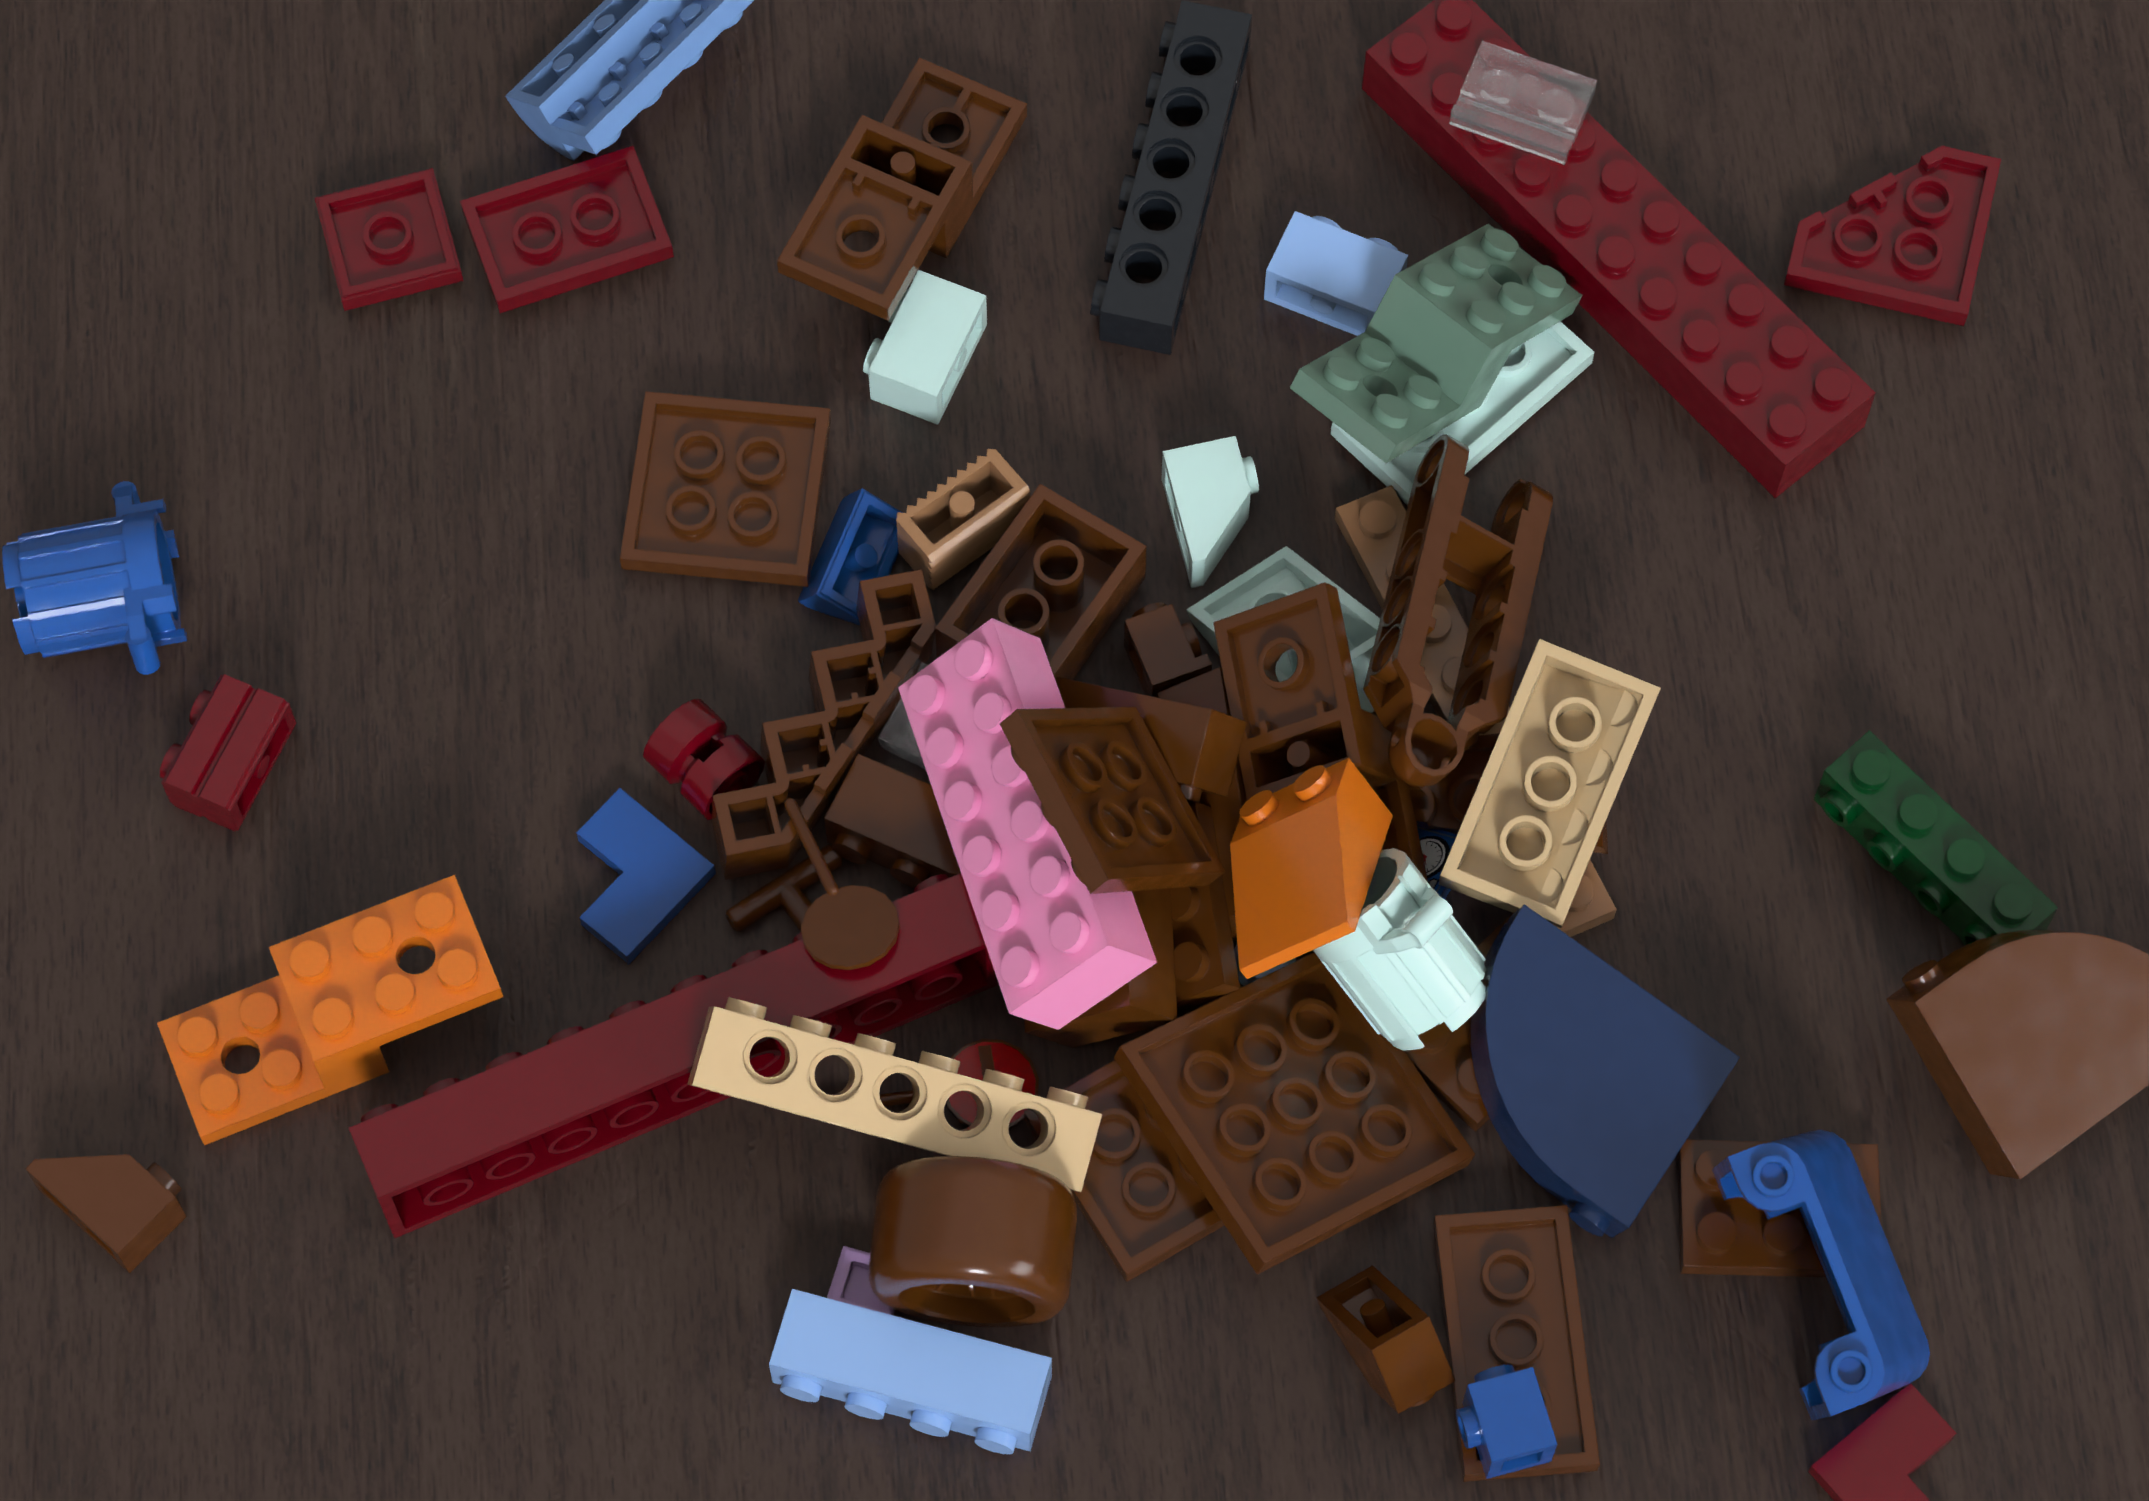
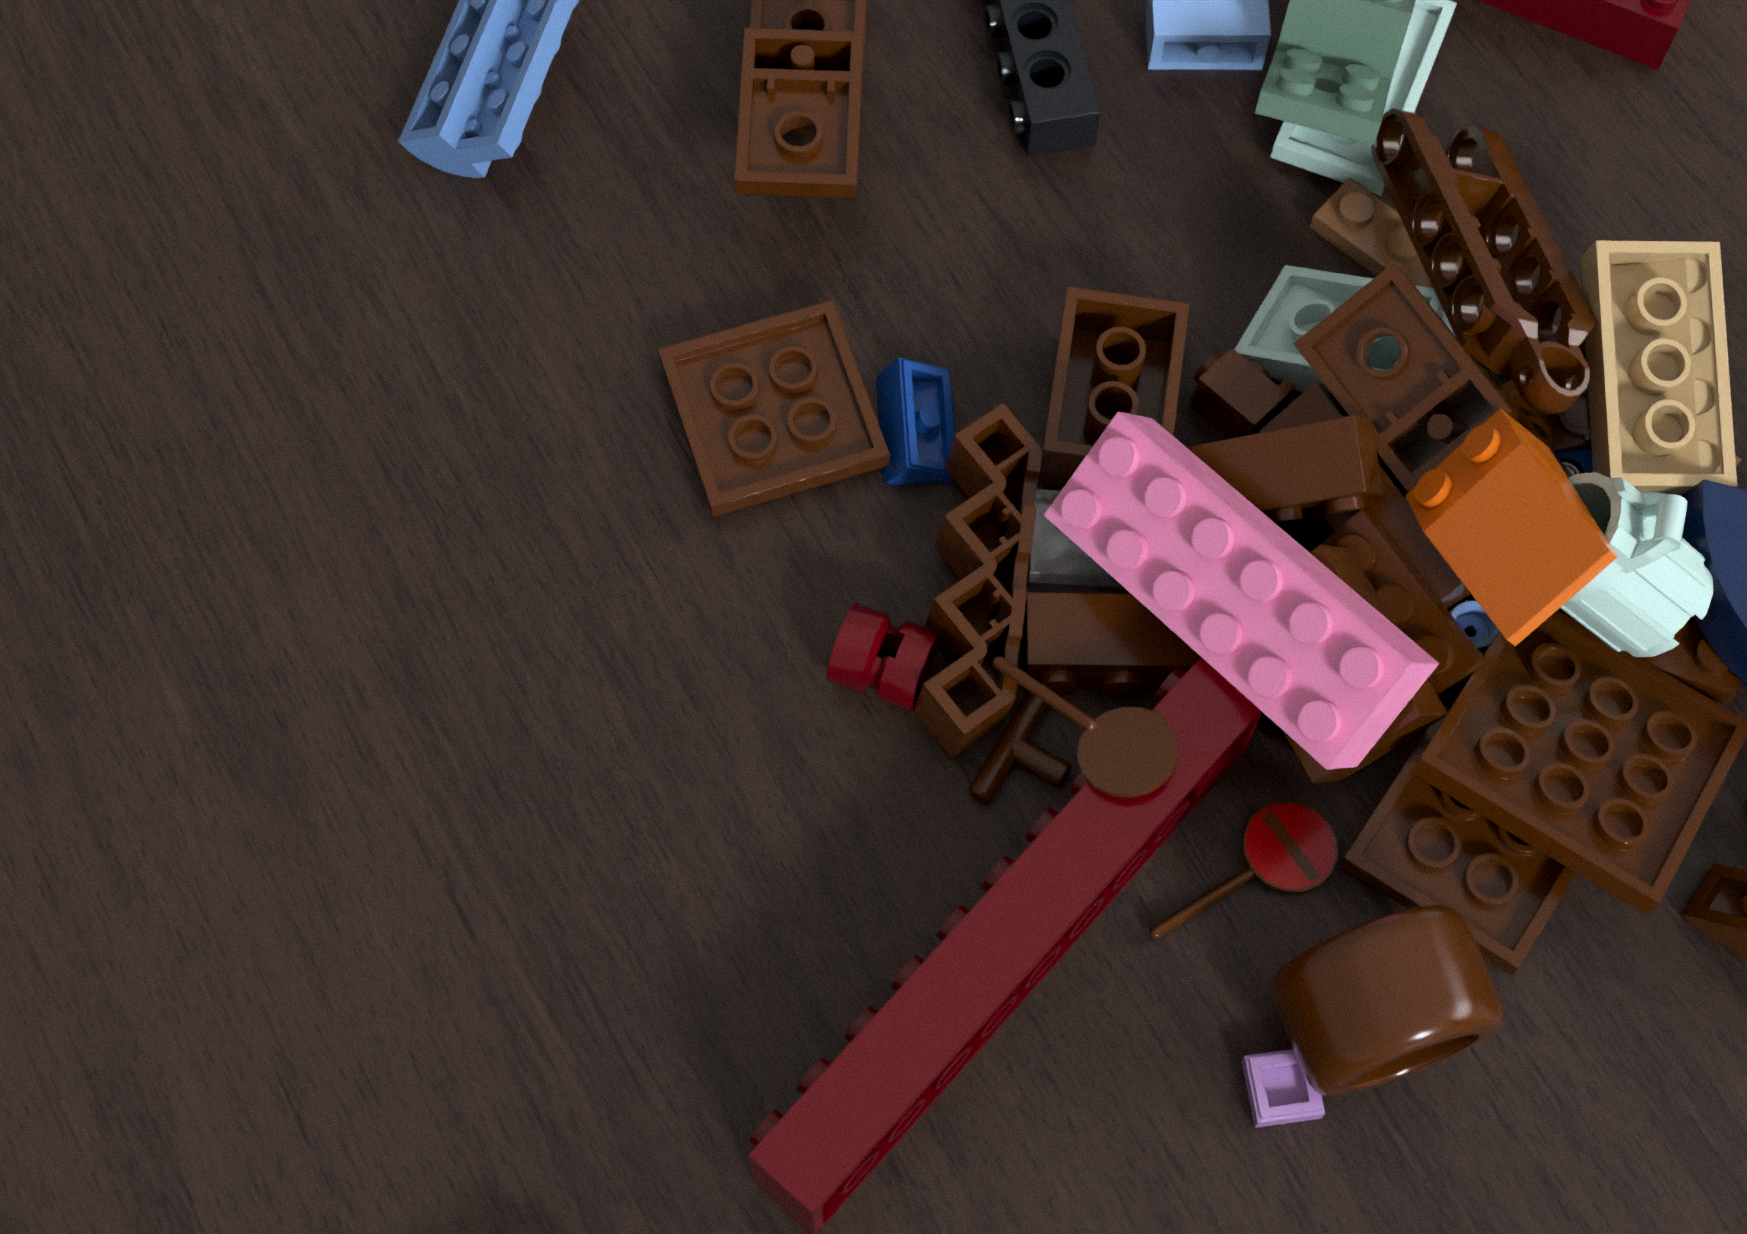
camera: 25 degrees left, 0 degrees up
(98, 584) = (229, 727): blue container -> none
(227, 751) = (426, 836): dark red brick -> none
(329, 1009) = (652, 1042): orange bracket -> none
(388, 239) = (350, 307): dark red plate -> none
(566, 229) = (510, 237): dark red plate -> none
(655, 872) = (885, 778): blue tile -> none
(725, 1068) = (1085, 931): tan brick -> none
(910, 1372) = (1374, 1148): light blue brick -> none
(926, 347) = (889, 216): light aqua brick -> none
(961, 518) = (1005, 345): medium nougat brick -> none
(1111, 799) = (1319, 531): reddish brown plate -> none
(1208, 500) = (1201, 252): light aqua slope -> none

